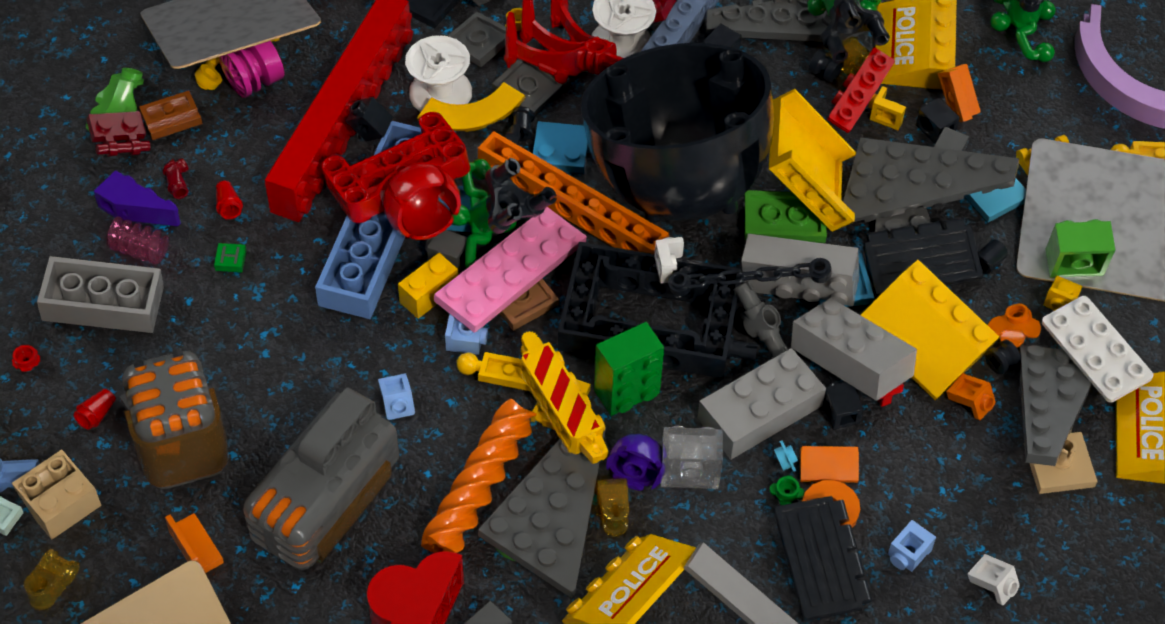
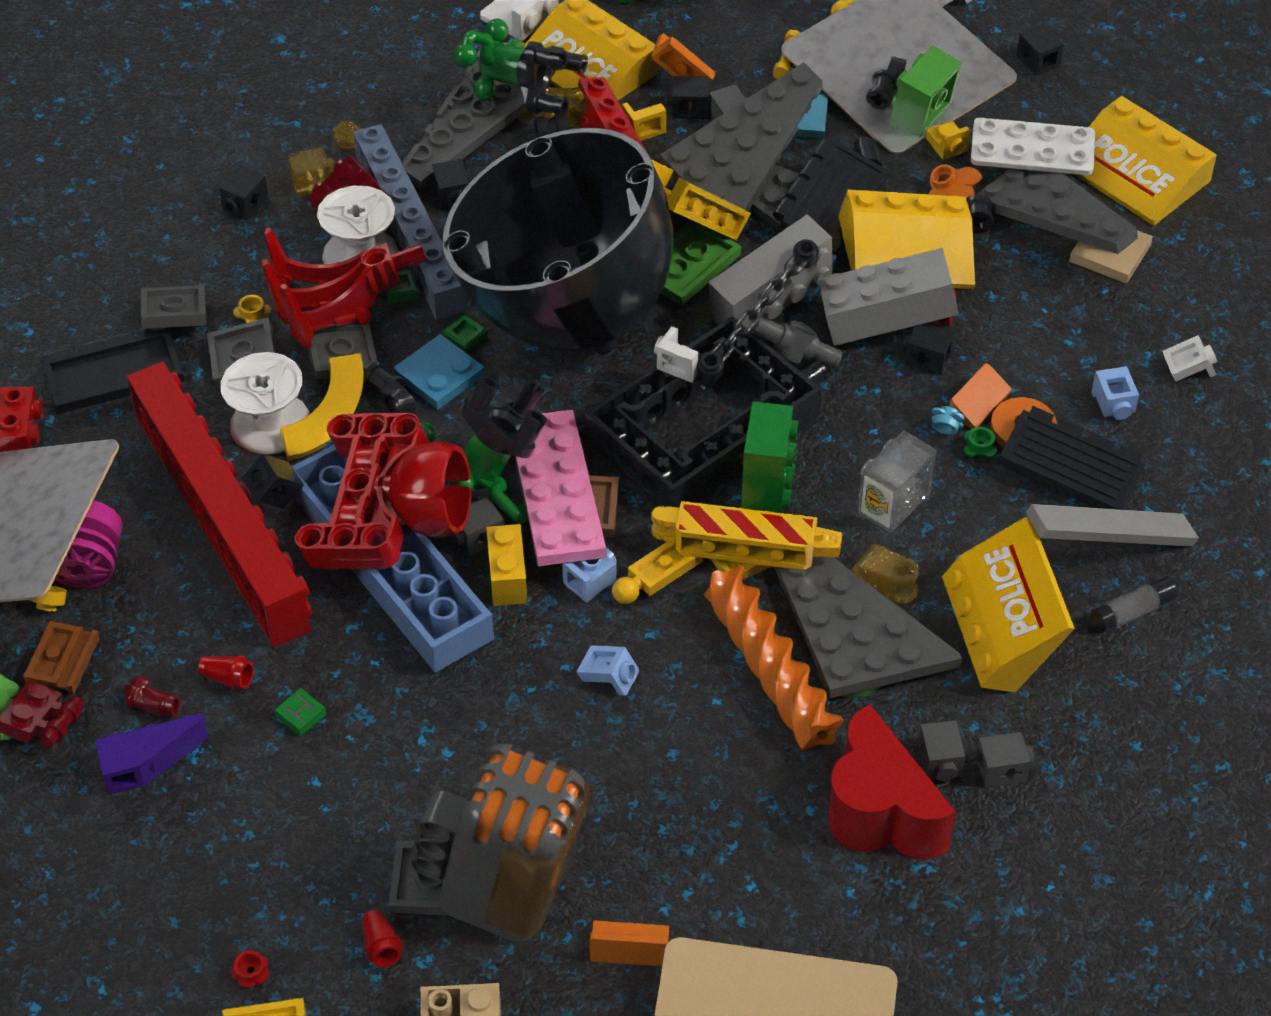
camera: 50 degrees left, 5 degrees down
(100, 294) = (242, 848): light grey brick -> none
(136, 241) = (200, 776): clear pink piece -> none
(323, 481) = (669, 775): dark grey piece -> none
(575, 199) = (565, 382): orange brick -> none
(637, 460) = (864, 520): dark purple cylinder -> none
(762, 402) = (875, 396): light grey brick -> none
(973, 393) = (996, 256): orange bracket -> none
(1067, 214) = (884, 83): none -> black connector

